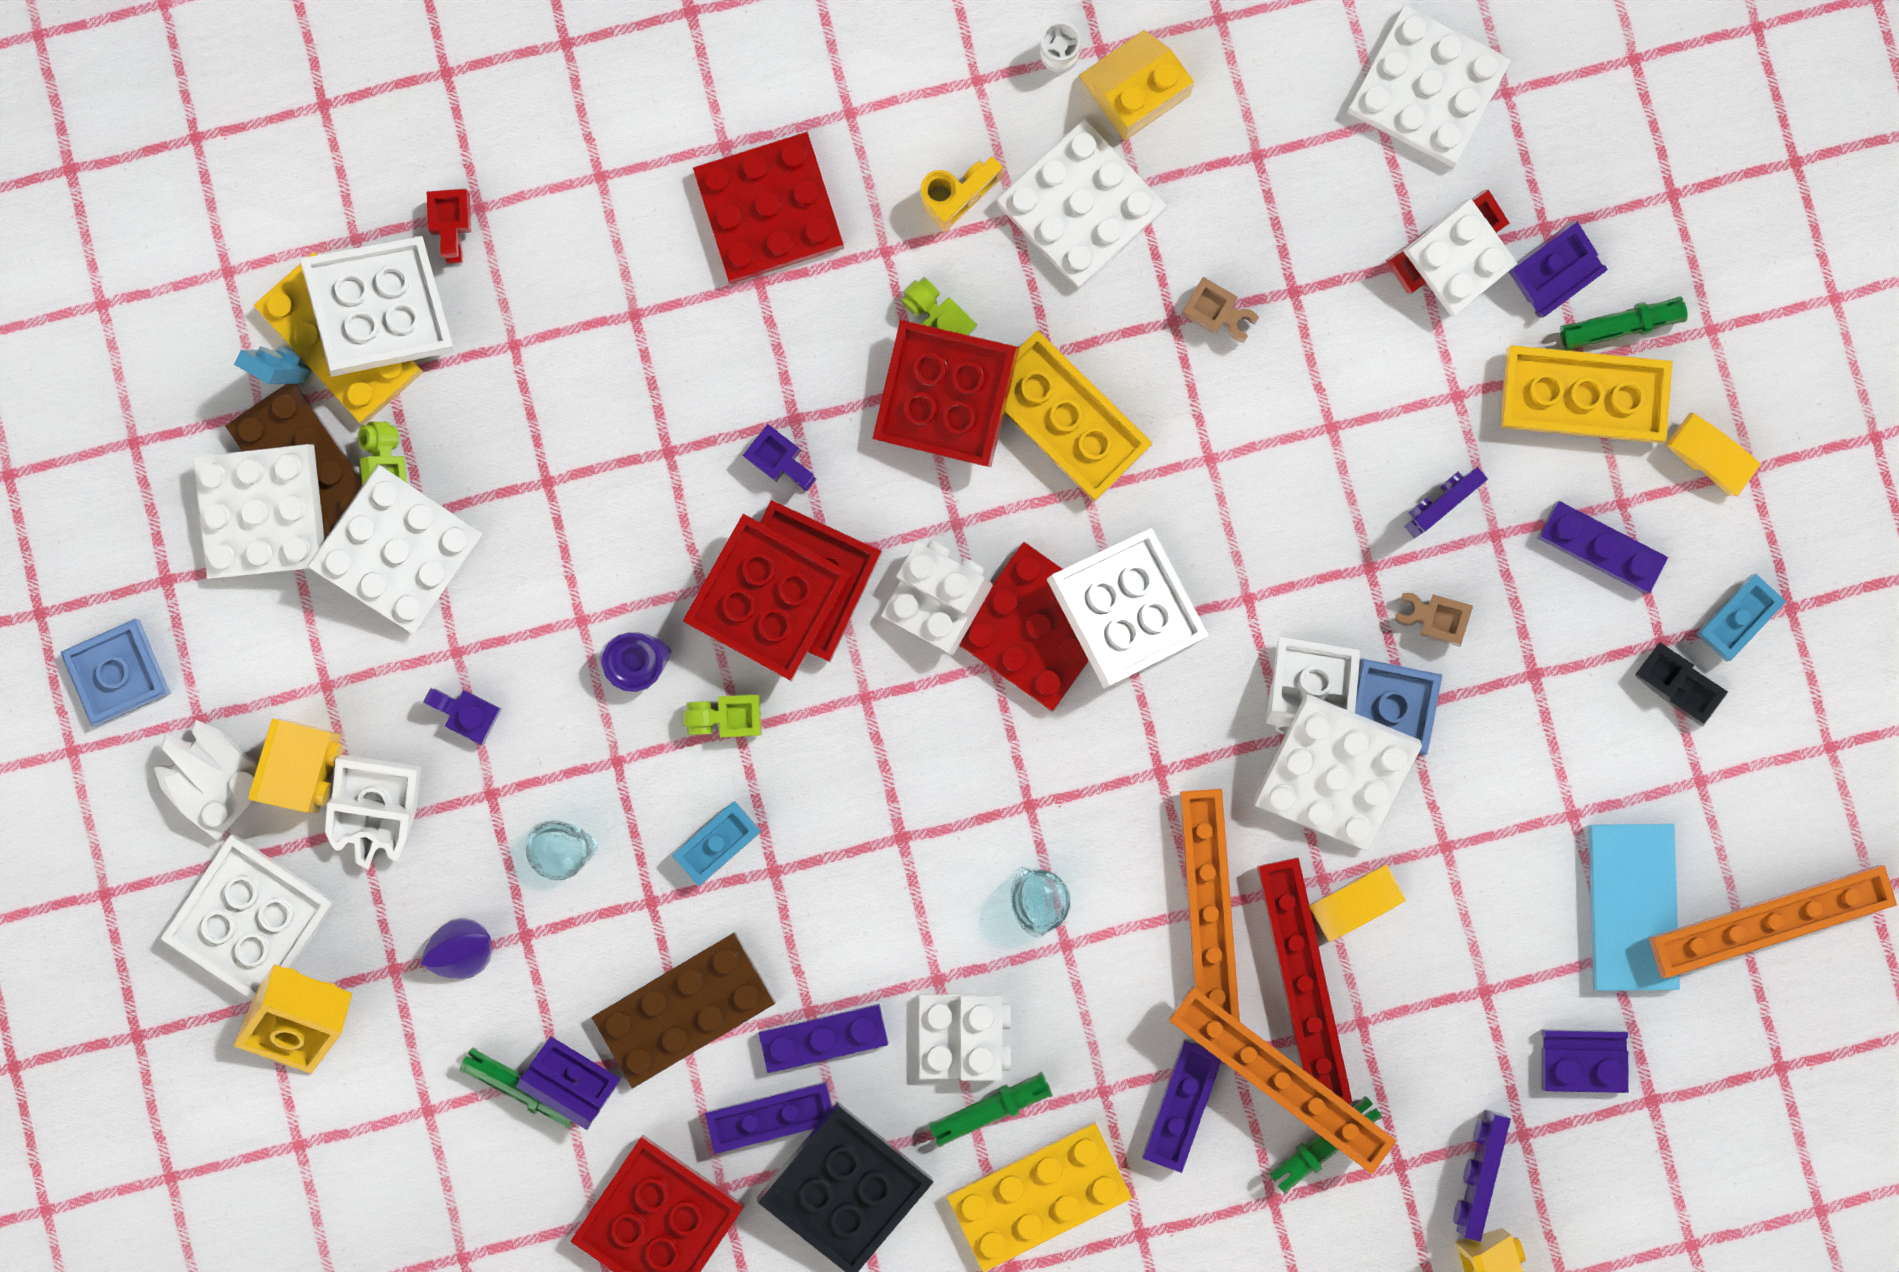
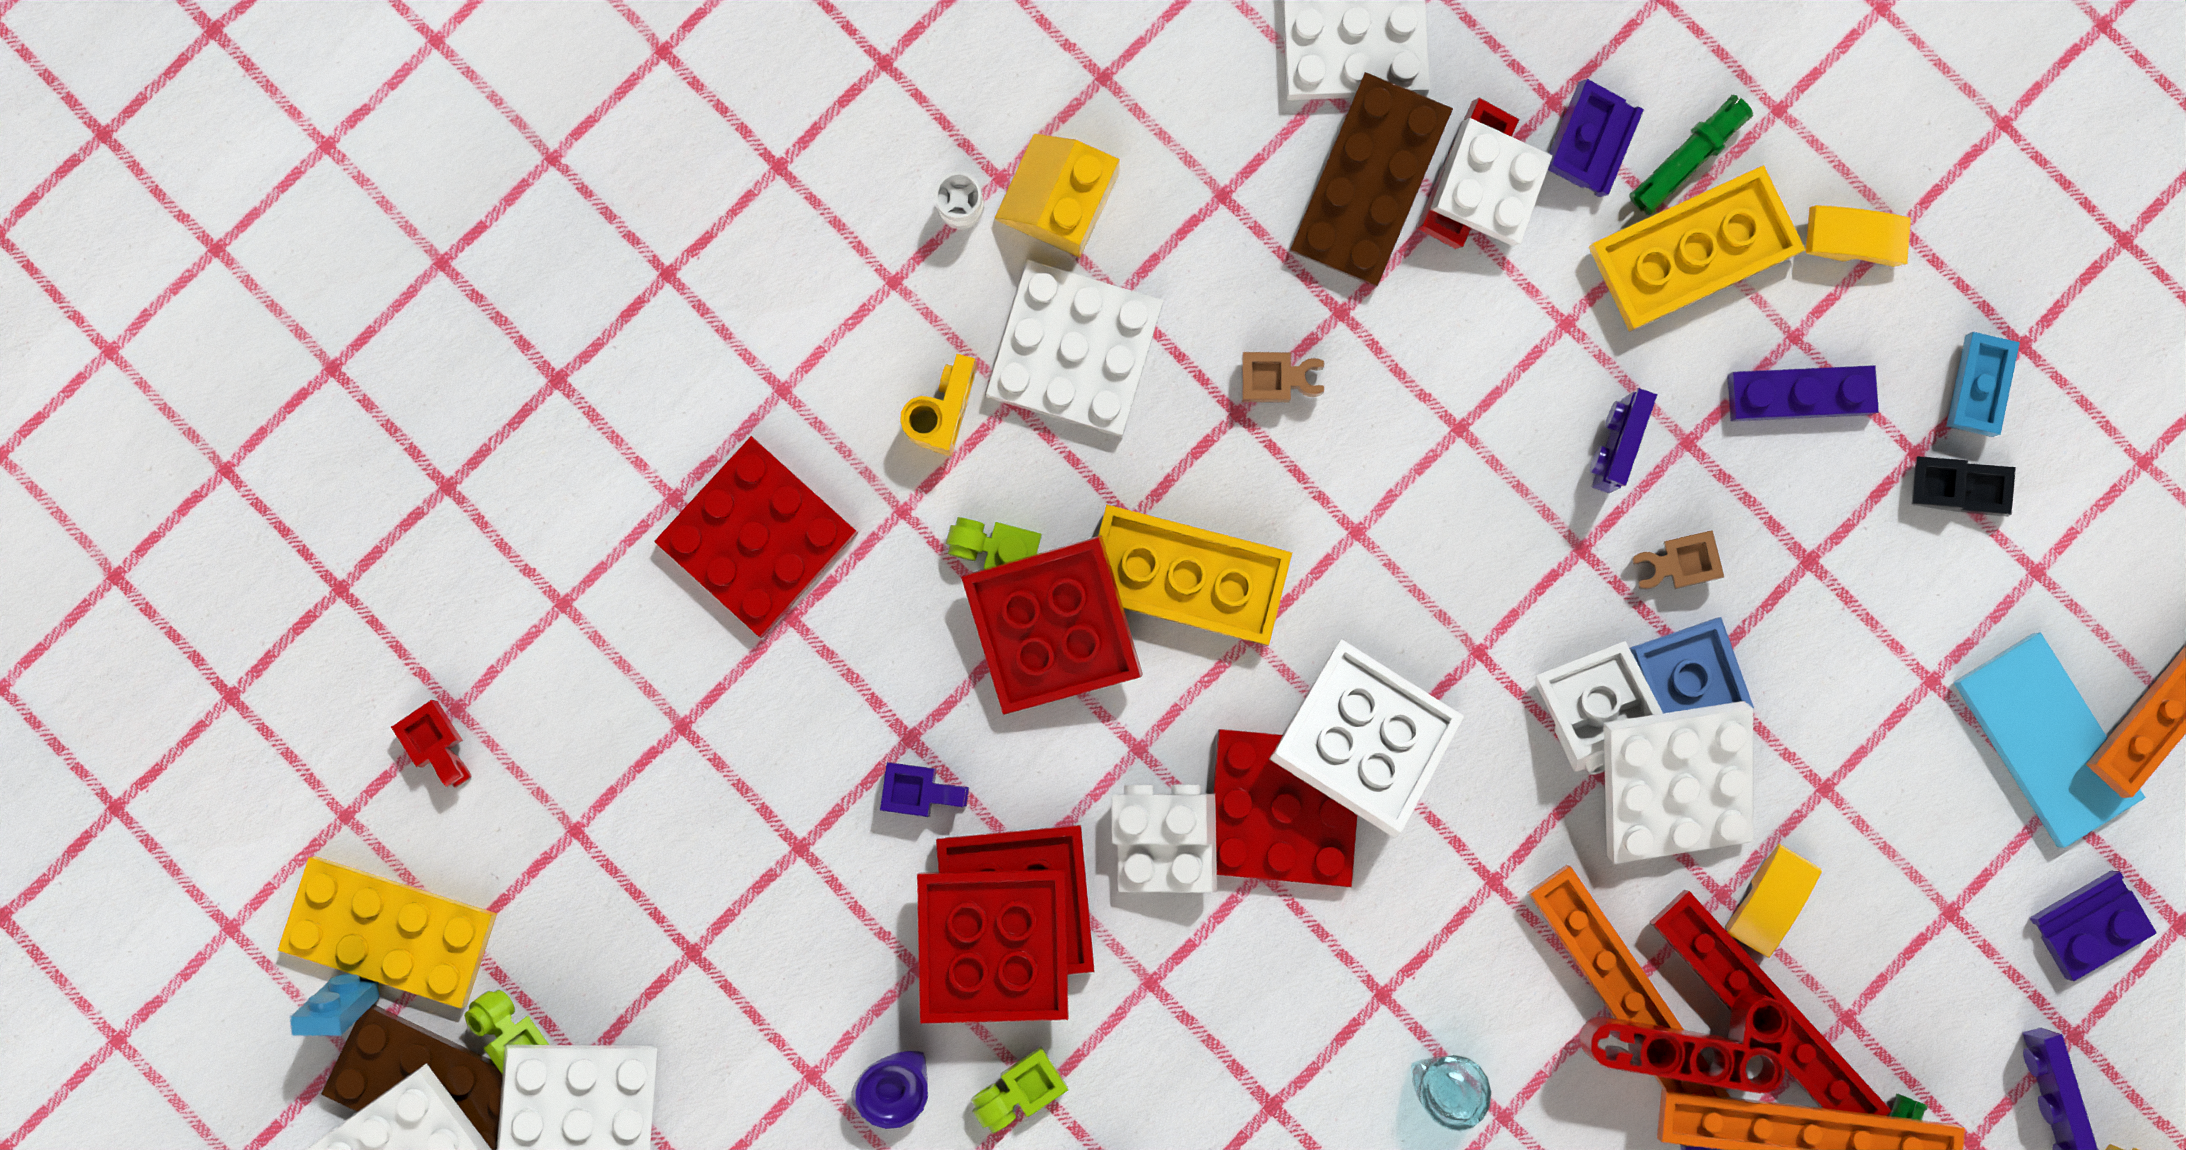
camera: 35 degrees left, 0 degrees up
(376, 305) = (407, 879): white plate -> none
(1226, 961) = (1683, 1046): none -> red beam
(1372, 204) = (1371, 179): none -> reddish brown plate

